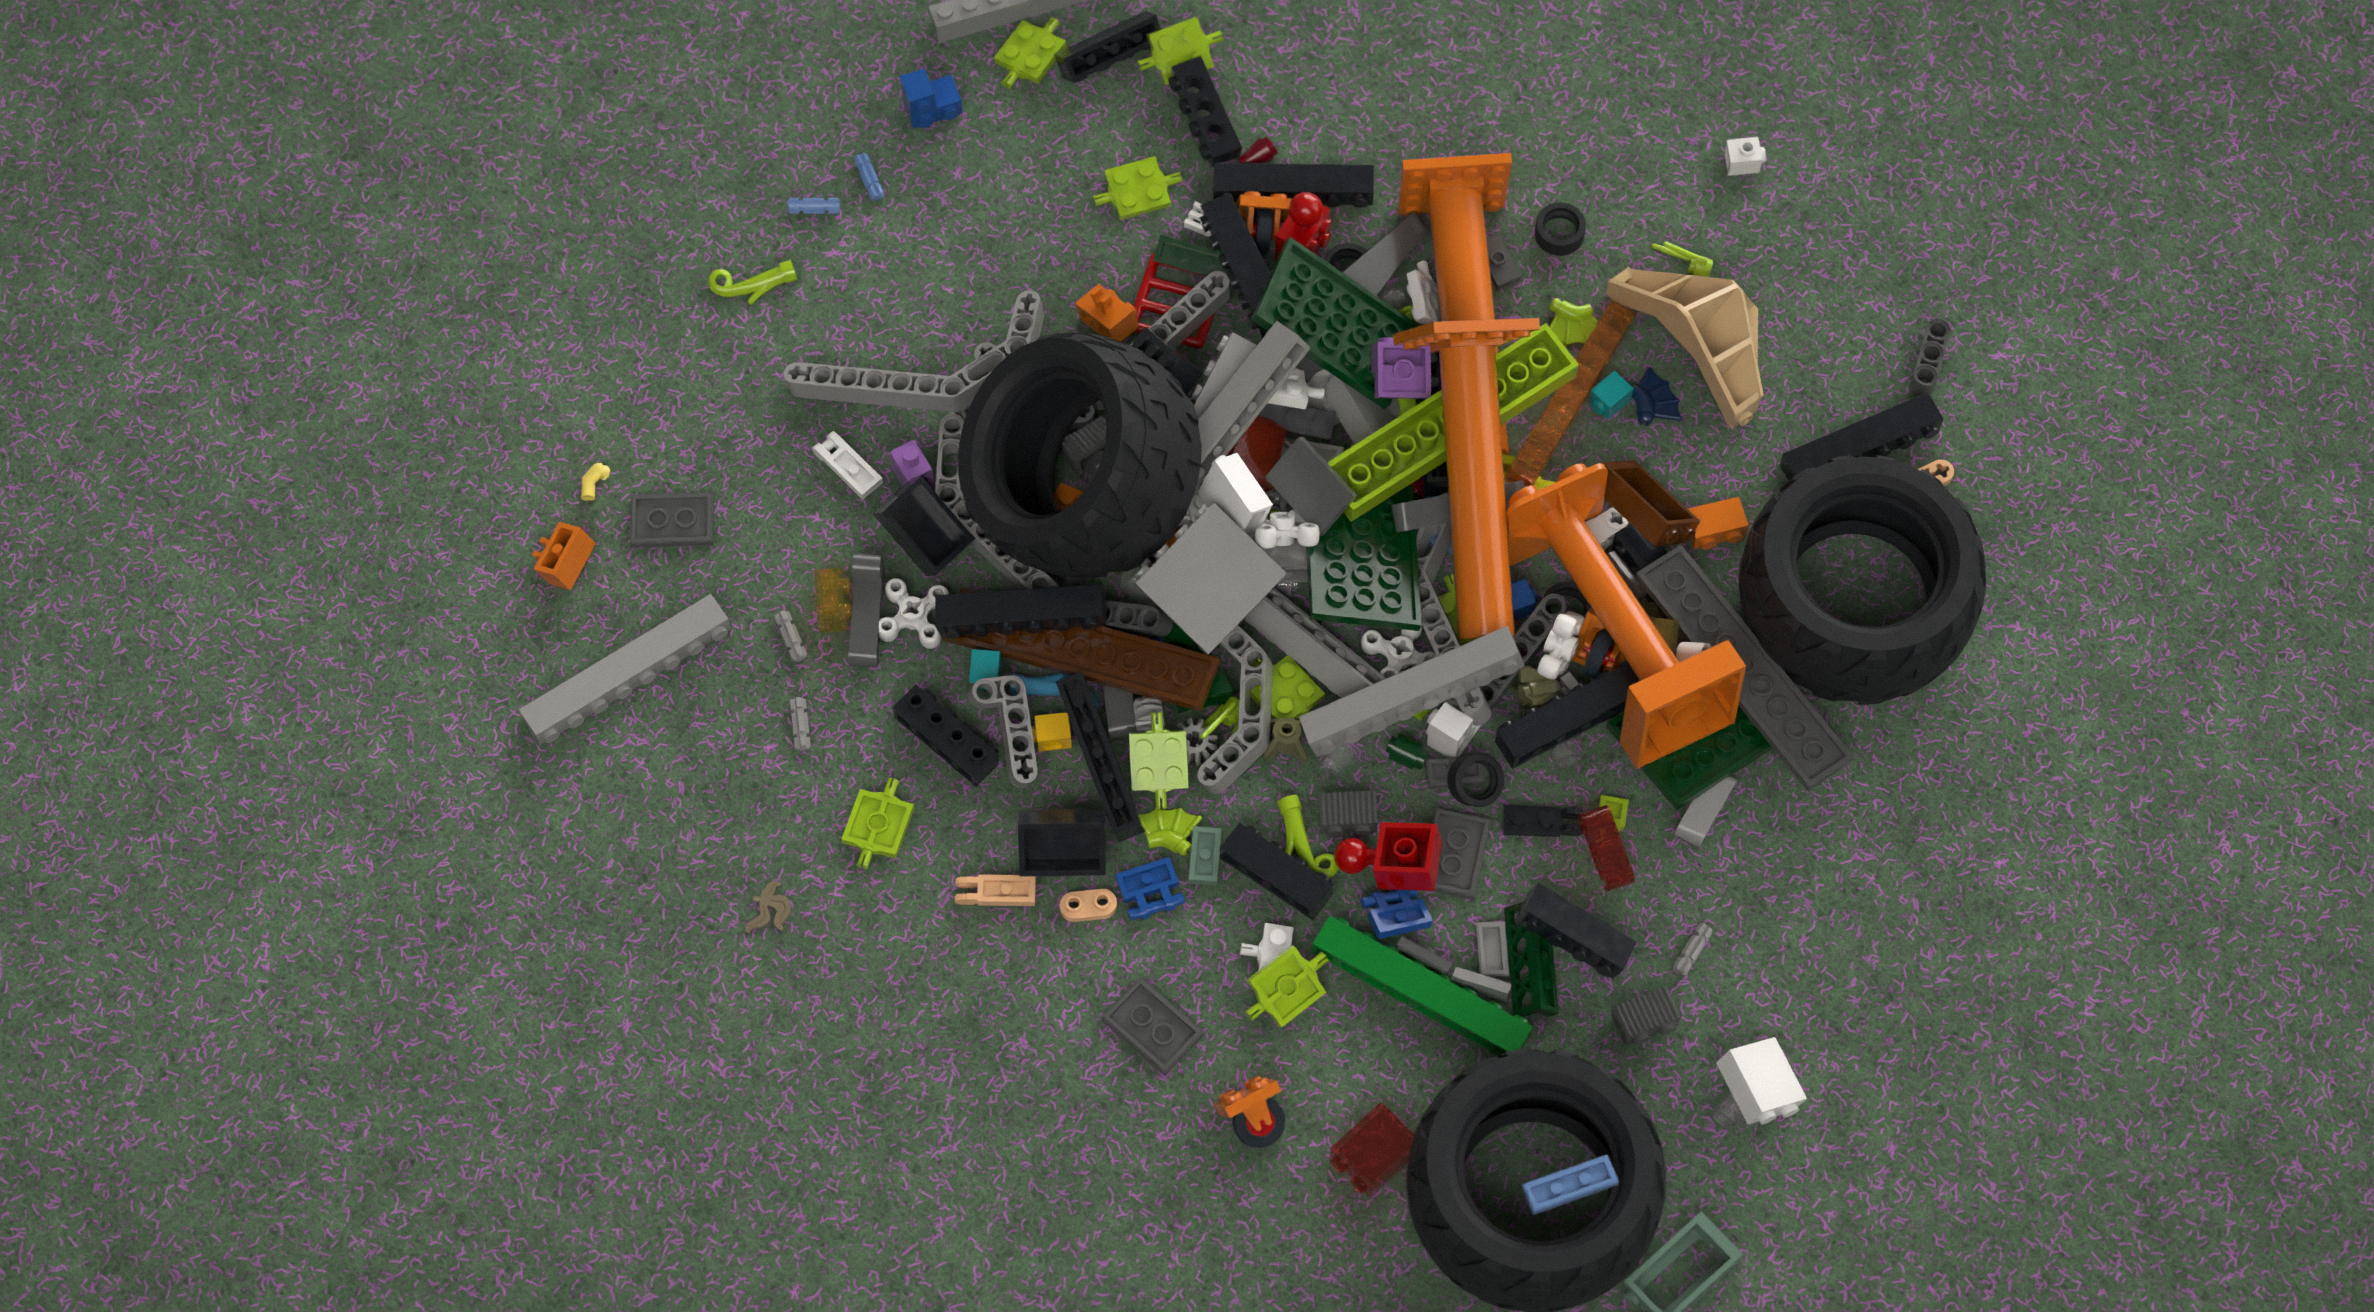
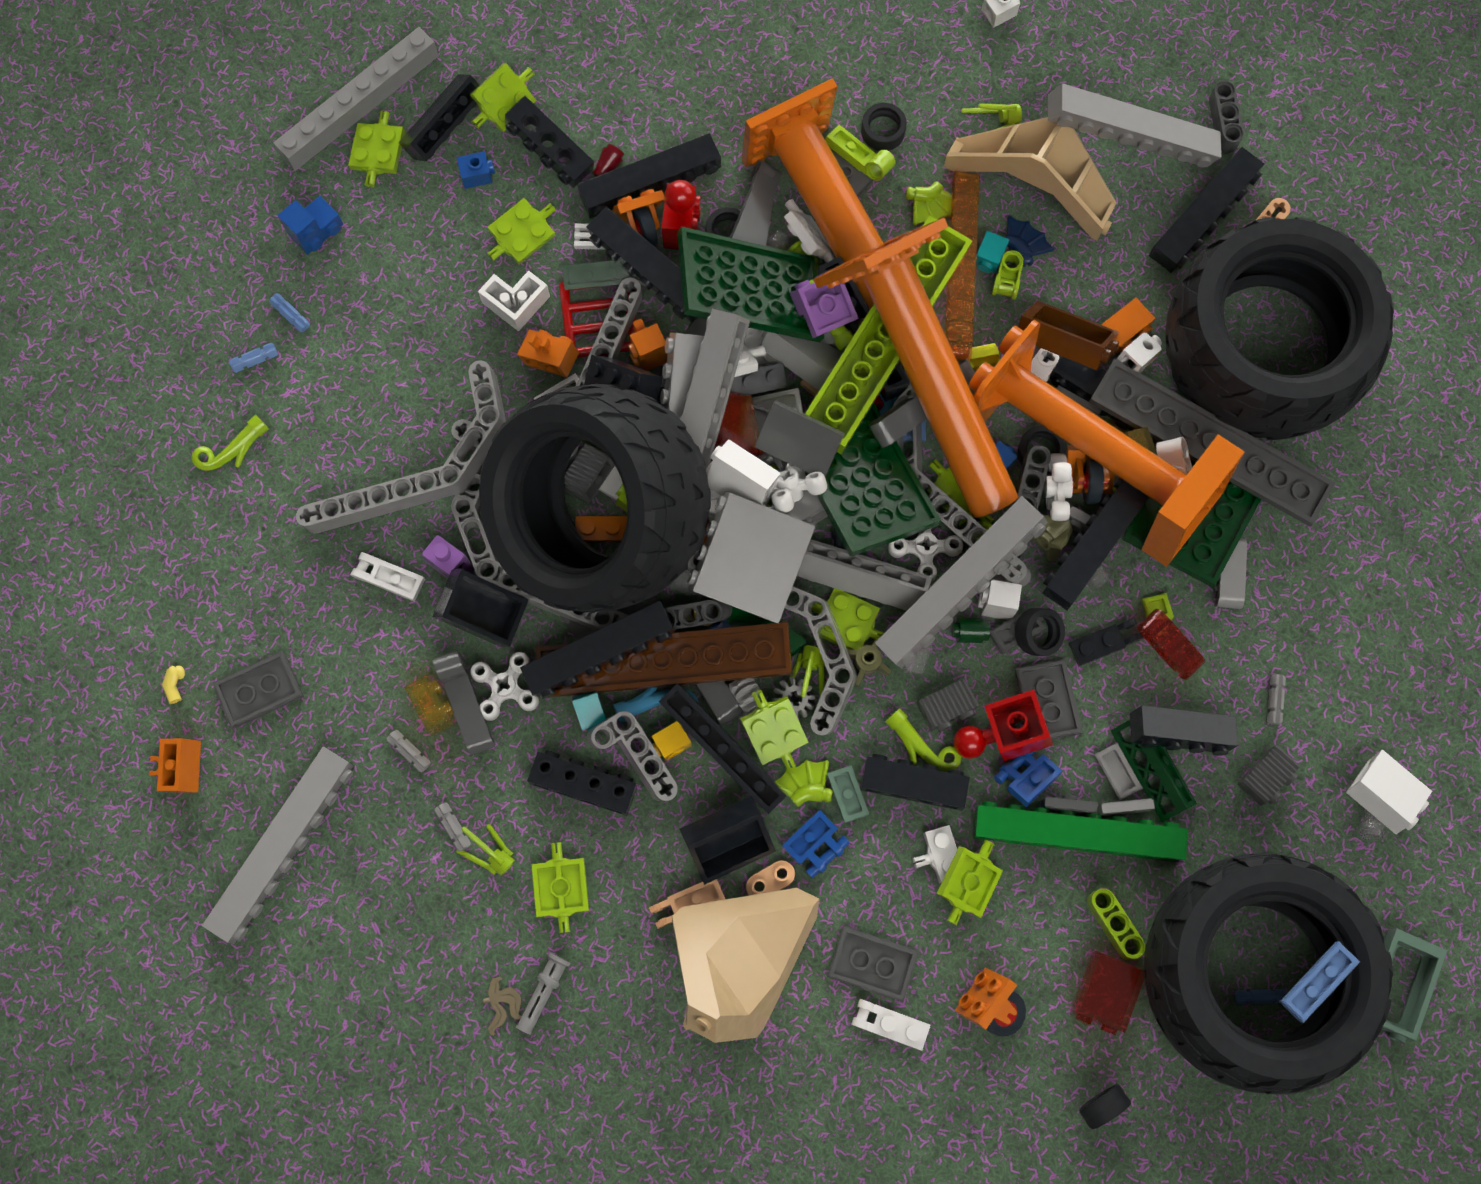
camera: 25 degrees left, 10 degrees up
(824, 904) = (549, 978): none -> light grey pin
(830, 774) = (499, 860): none -> lime plant
(1022, 955) = (739, 959): none -> tan panel
(1098, 254) = (517, 303): none -> white brick
(1119, 110) = (475, 169): none -> blue brick
(1143, 1090) = (892, 1025): none -> white plate
(1205, 341) = (647, 346): none -> orange brick
(1317, 1250) = (1105, 1106): none -> black tyre
(1414, 1076) = (1127, 930): none -> lime beam
(1520, 246) = (860, 155): none -> lime plate
(1532, 1224) = (1259, 996): none -> medium blue axle
(1615, 429) = (1007, 278): none -> lime piece
(1714, 552) = (1141, 351): none -> white torso
(1814, 324) = (1133, 125): none -> light grey brick

